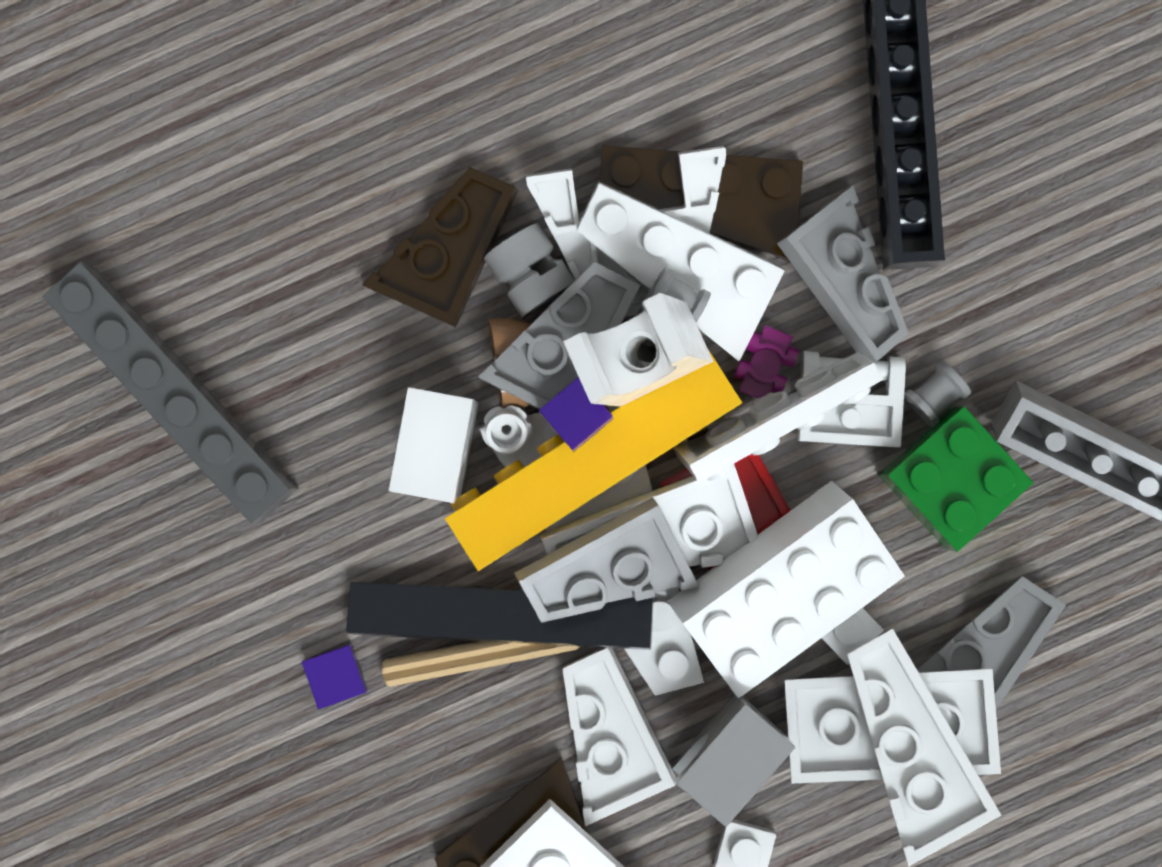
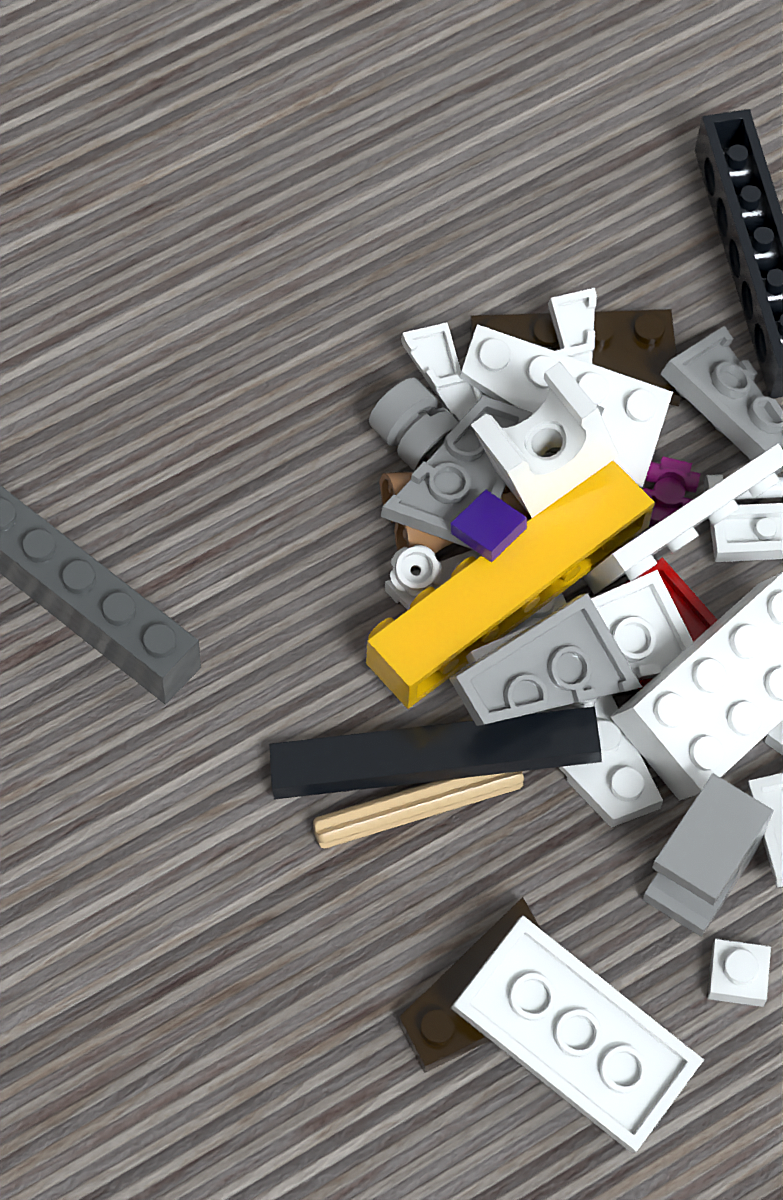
camera: 15 degrees left, 25 degrees down
(334, 676) = (263, 844): dark purple tile -> none
(433, 445) = (343, 585): white piece -> none
(446, 253) = (330, 425): dark brown wing -> none
(613, 739) = (574, 866): white wing -> none

